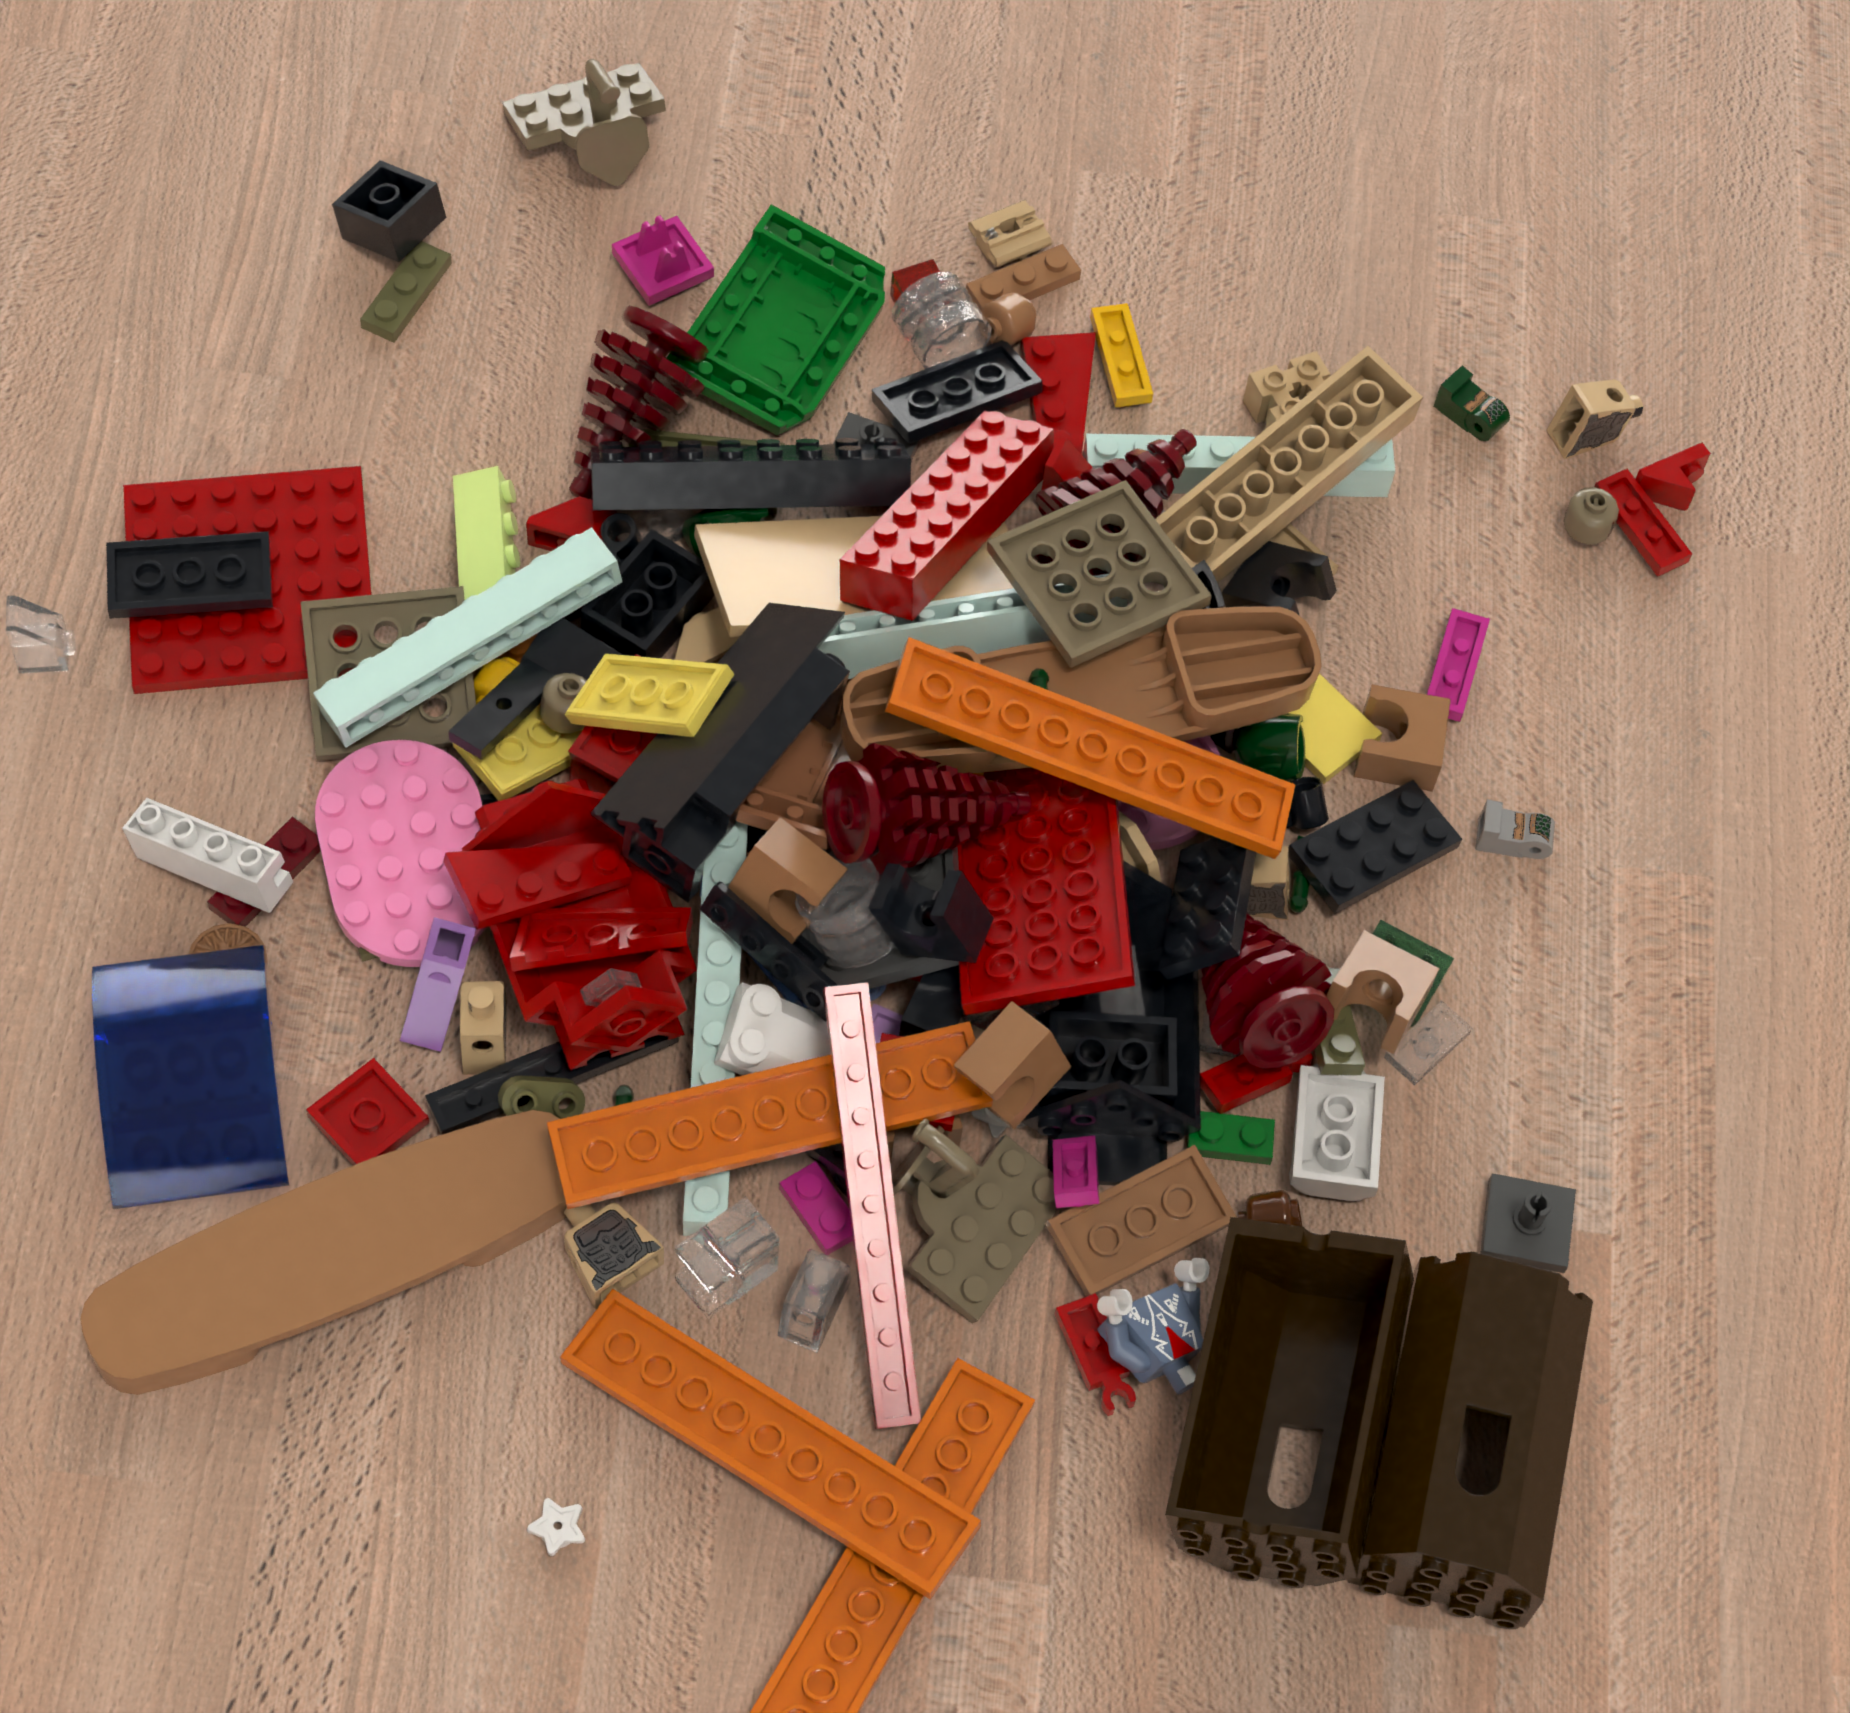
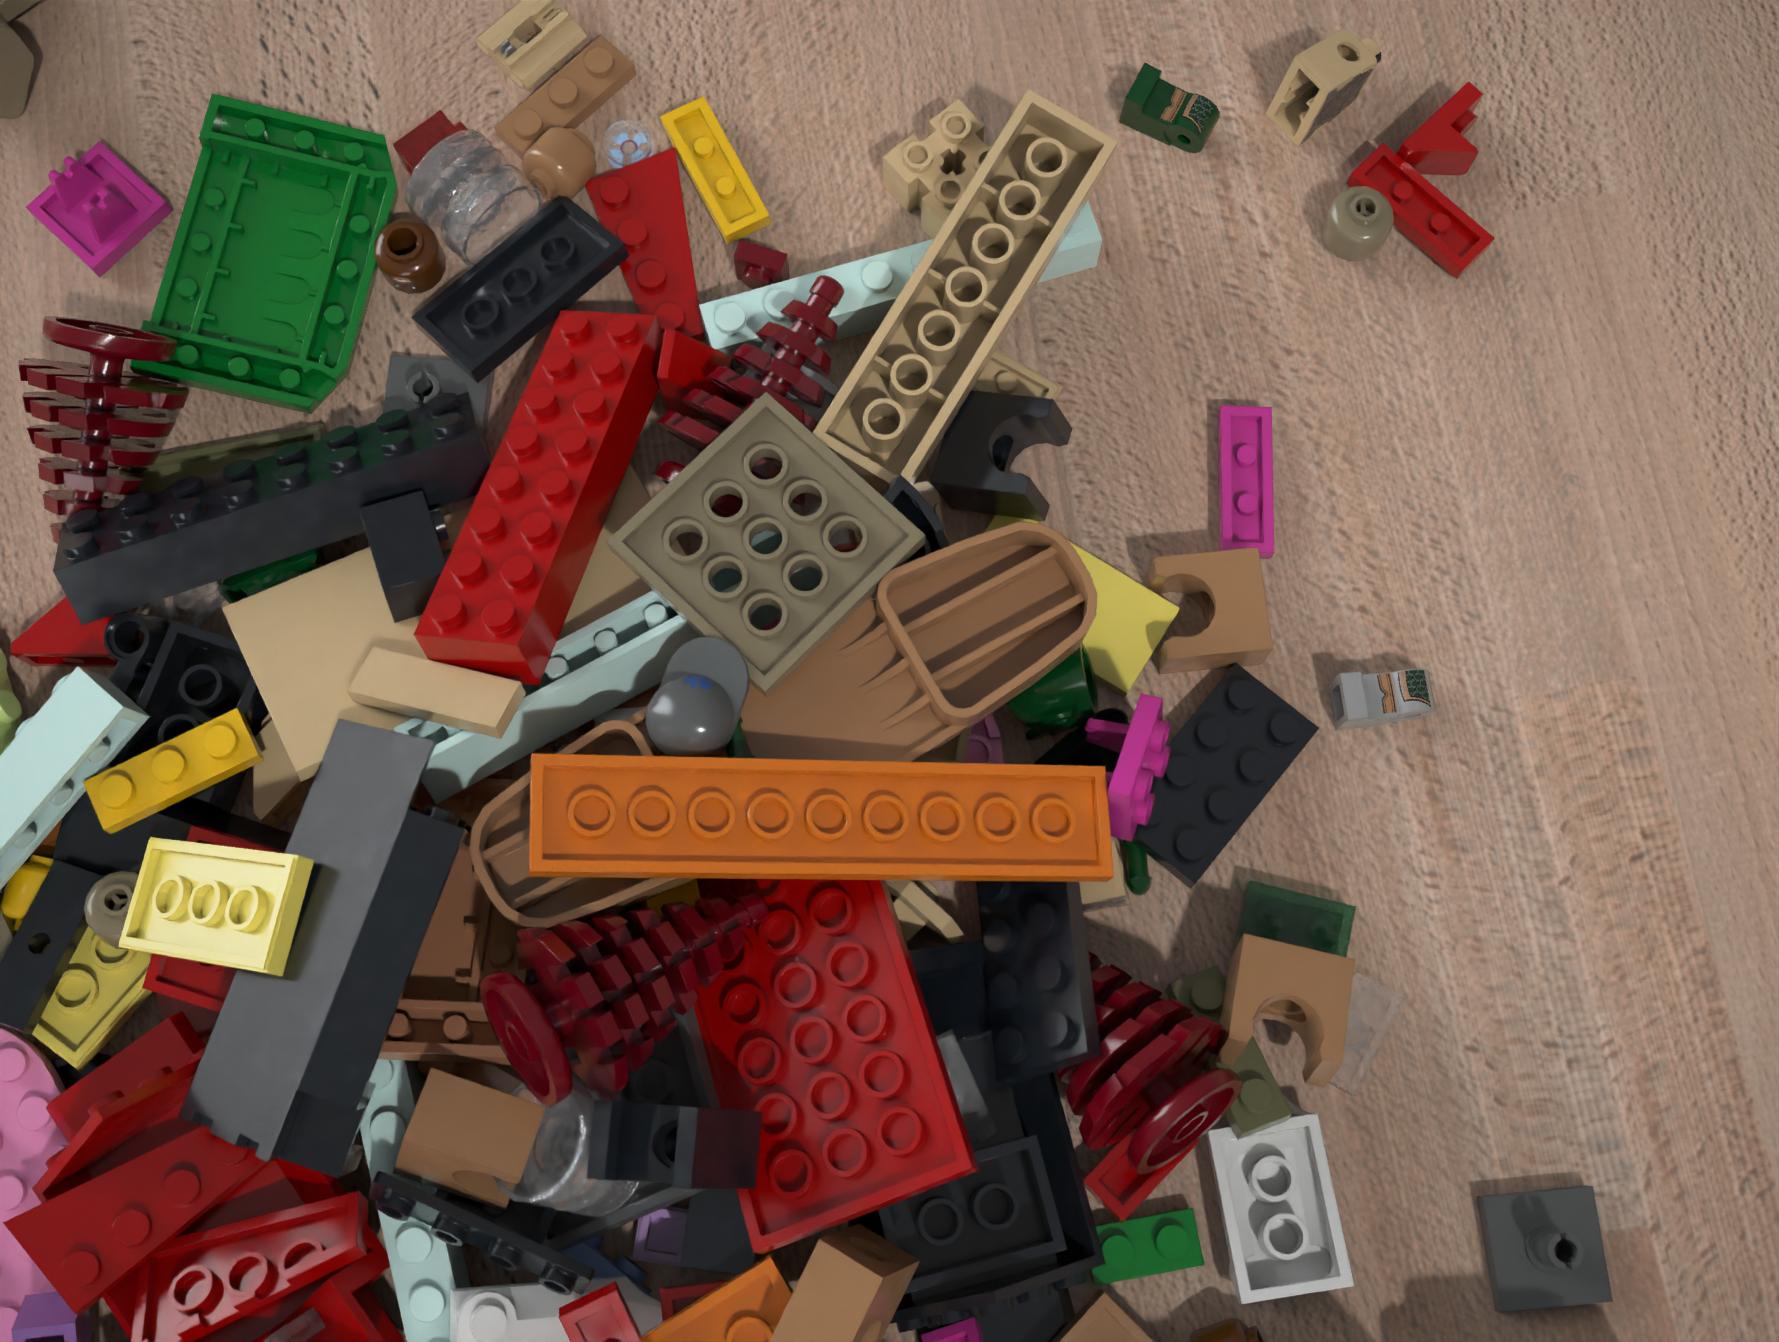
camera: 10 degrees left, 15 degrees up
(629, 621) = (173, 771): none -> yellow plate
(836, 521) = (406, 551): none -> black brick
(861, 611) = (437, 692): none -> tan tile
(882, 349) = (410, 256): none -> reddish brown head
(1027, 648) = (699, 699): none -> dark grey cap
(1060, 320) = (627, 143): none -> clear tile
(1136, 421) = (760, 265): none -> dark red plate
(1316, 802) = (1140, 759): none -> dark pink plate

